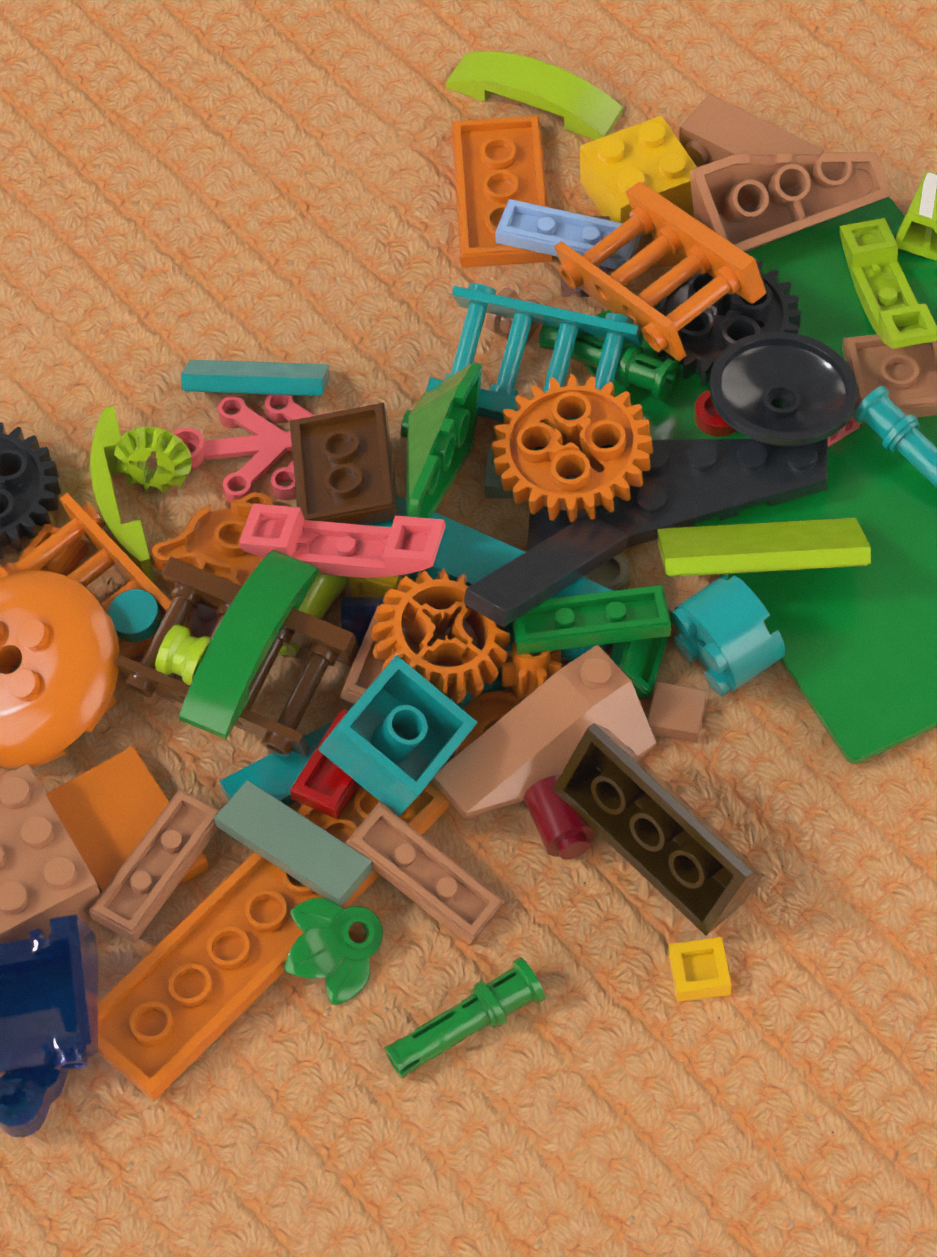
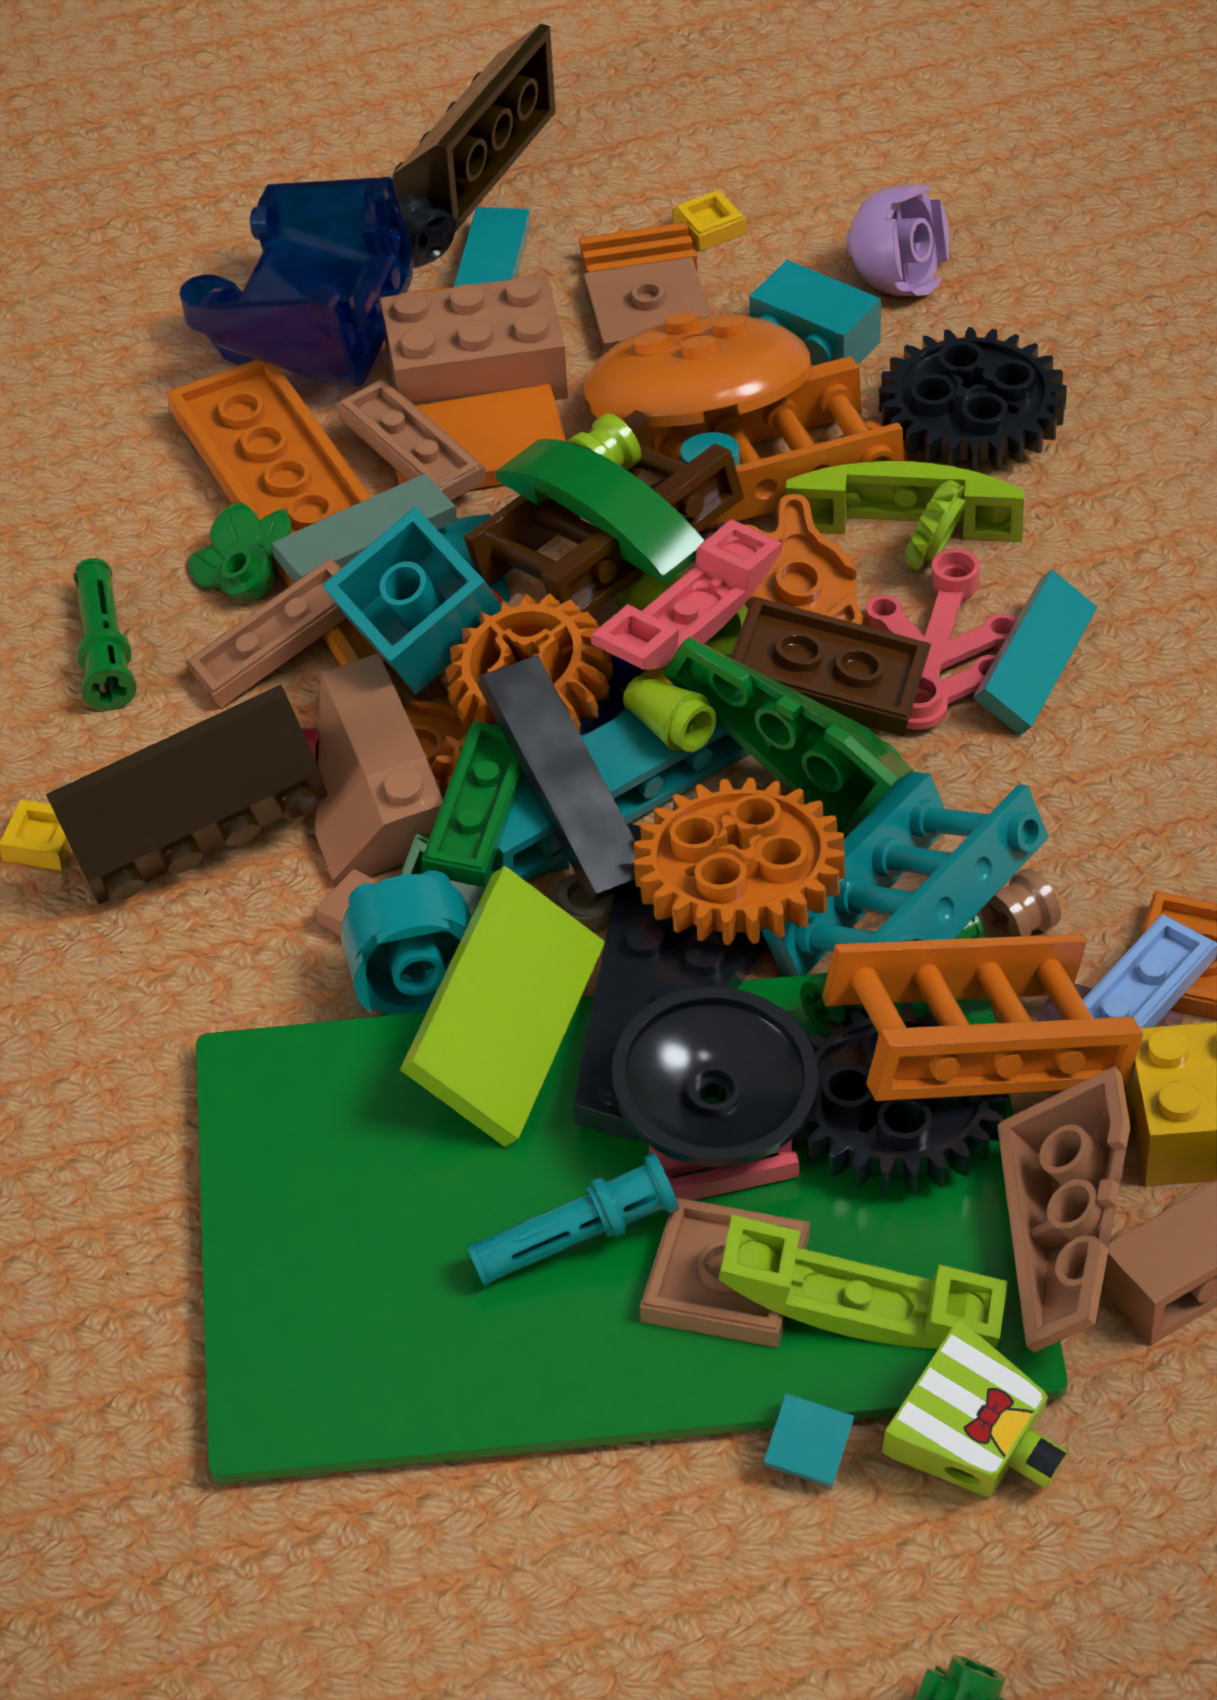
camera: 110 degrees right, 10 degrees down
(461, 521) = (671, 713): none -> lime cone

